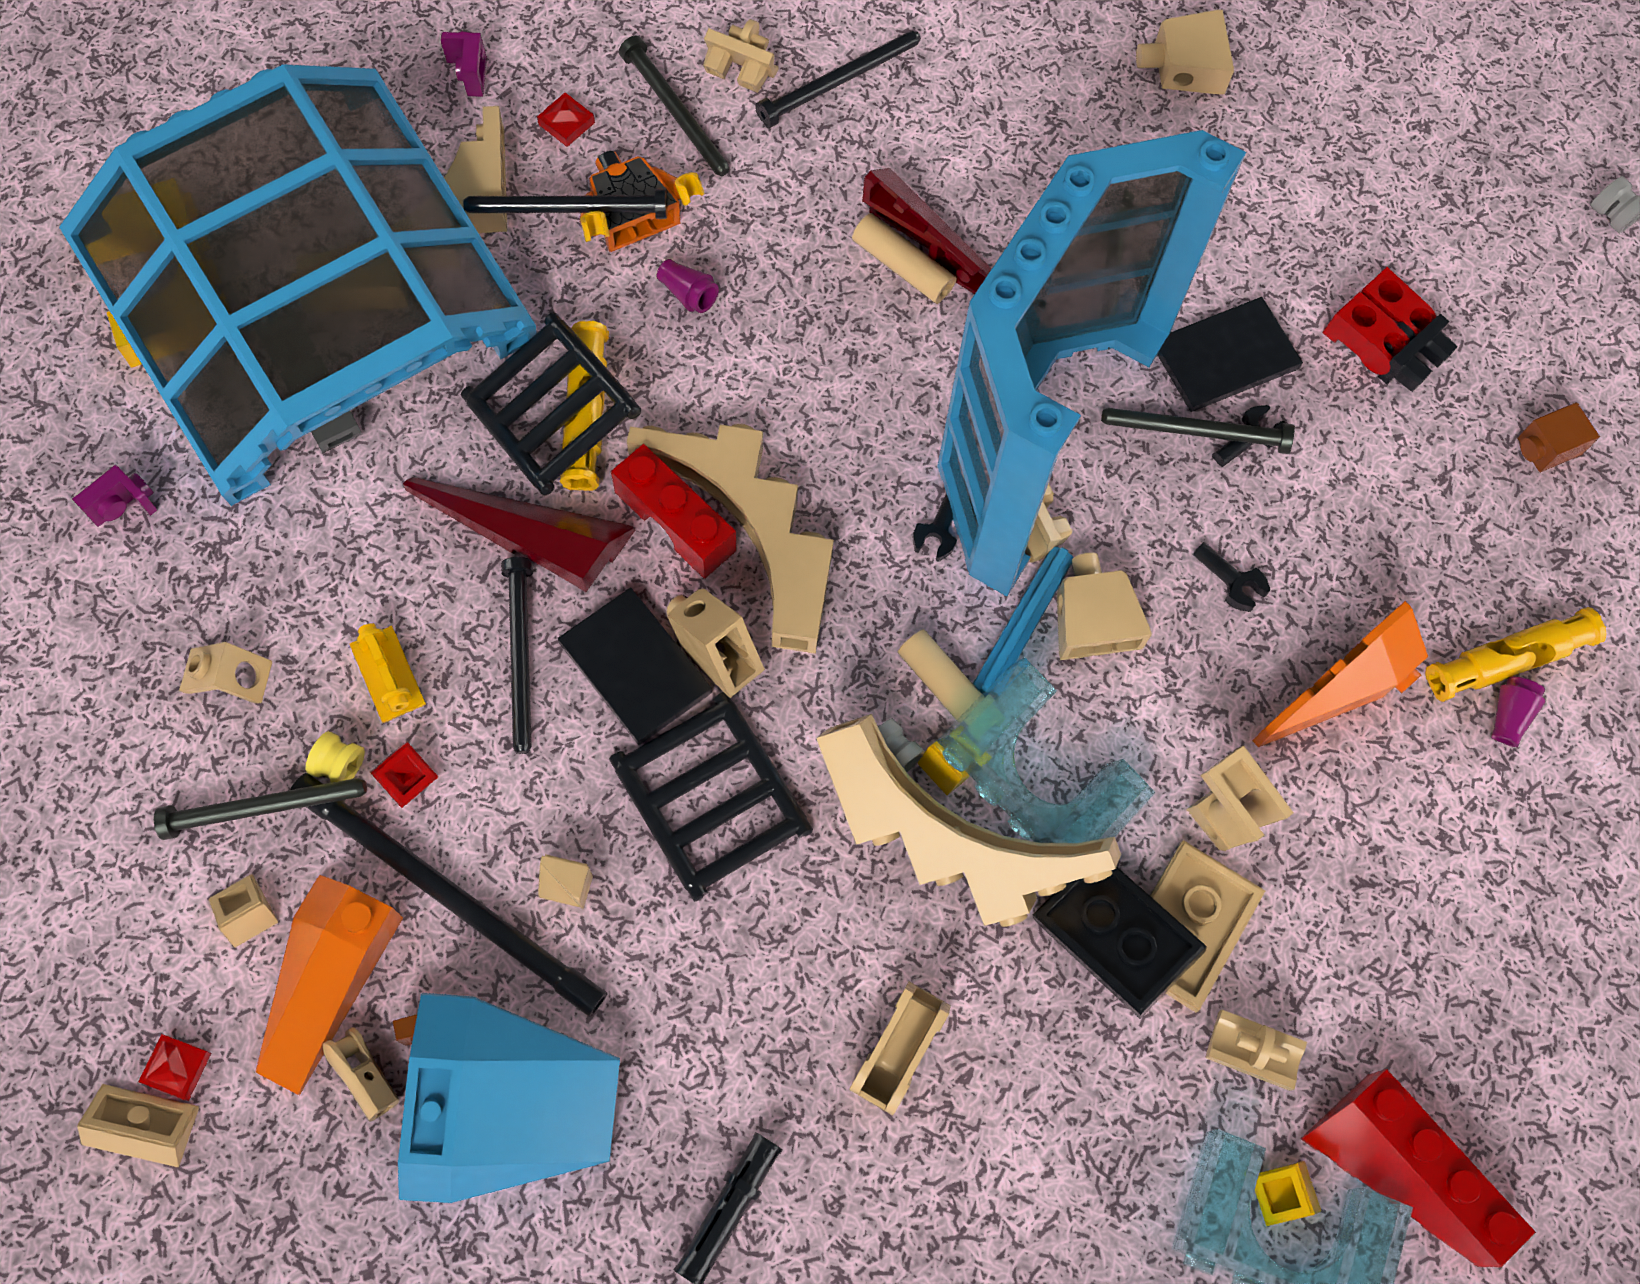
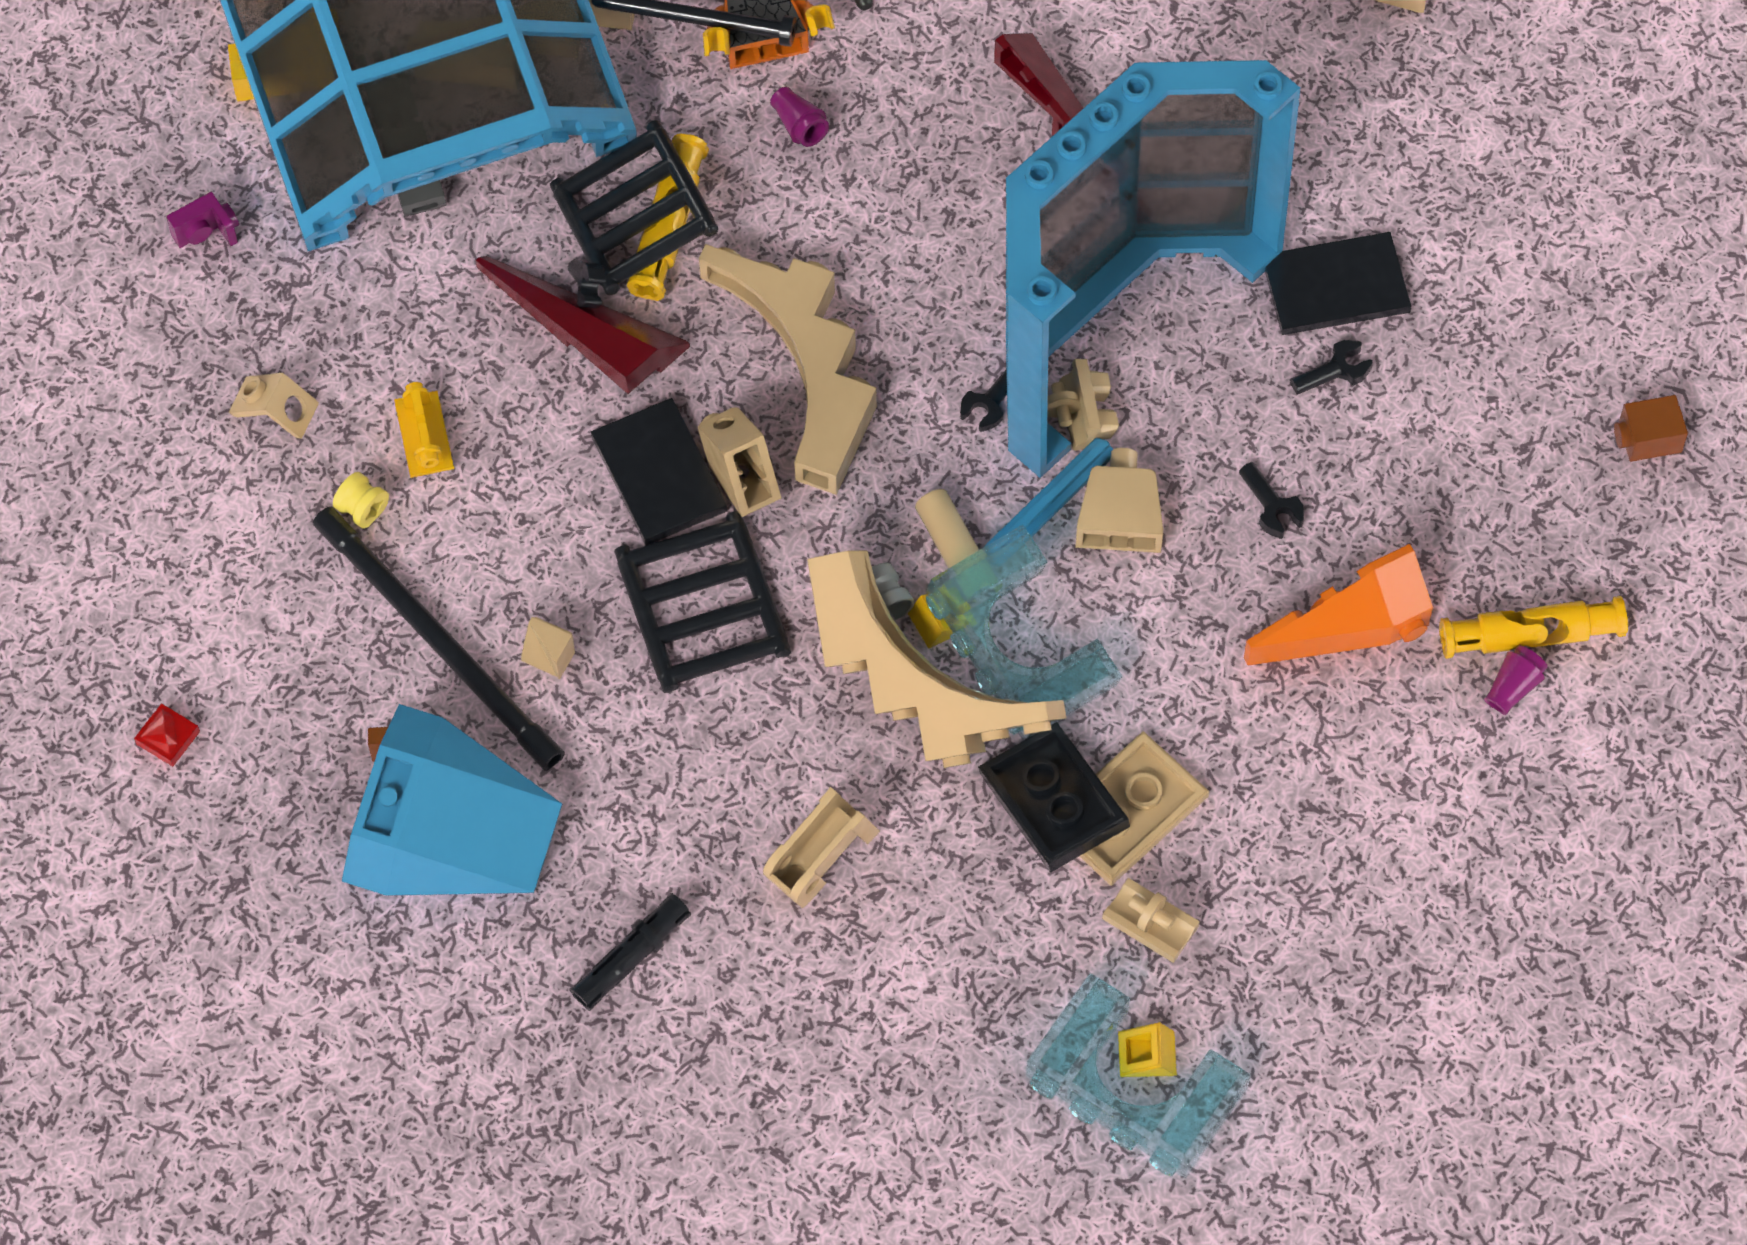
camera: 20 degrees right, 5 degrees down
(137, 1125) = (126, 776): tan slope -> none
(170, 821) = (200, 525): pearl dark grey bar -> none
(242, 911) = (250, 617): tan slope -> none
(324, 967) = (316, 677): orange wedge -> none
(365, 1080) = (329, 776): tan bar -> none
(404, 774) = (420, 526): red tile -> none
(517, 571) = (566, 361): black bar -> none
(521, 482) = (587, 277): none -> black bar
(690, 522) = (743, 348): red arch -> none
(904, 258) = (1015, 114): tan piece -> none
(1203, 428) = (1359, 374): pearl dark grey bar -> none
(1238, 801) = (1194, 690): tan piece -> none
(1389, 330) = (1513, 290): red hips -> none
(1407, 1156) = (1257, 1028): red wedge -> none

